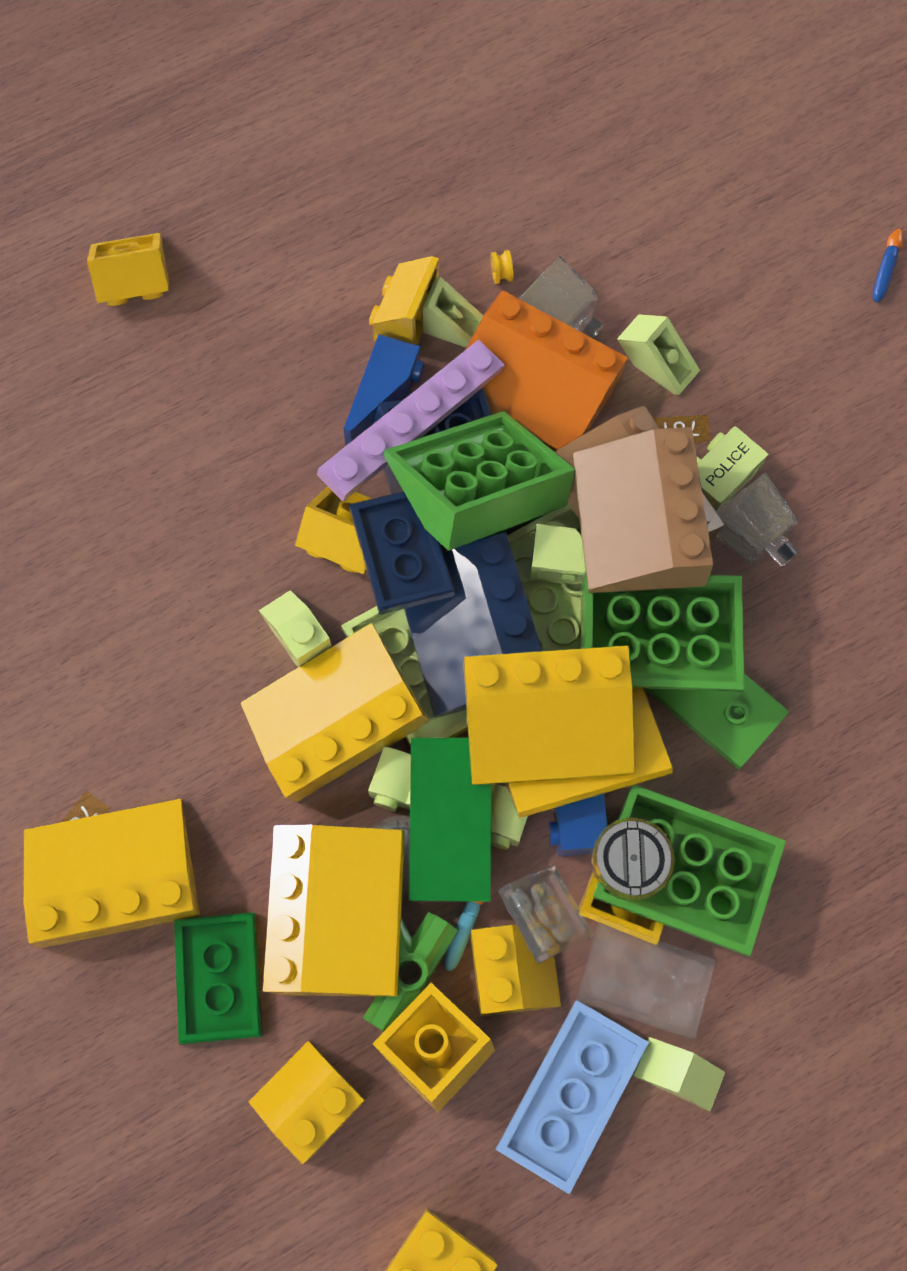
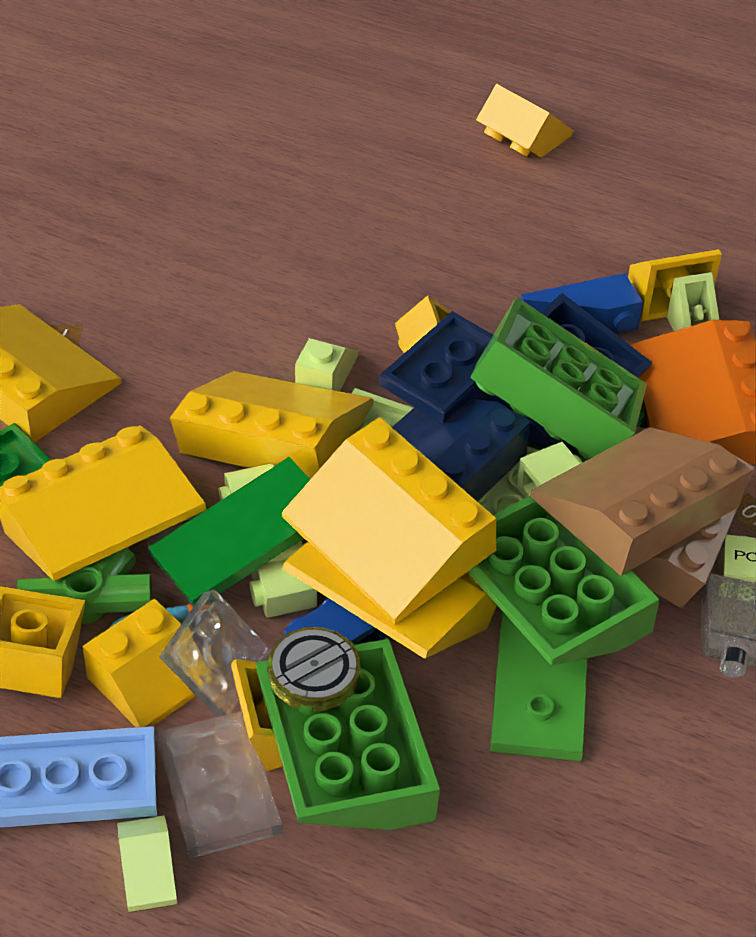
camera: 55 degrees right, 25 degrees down
(410, 419) = (580, 317): lavender plate -> none

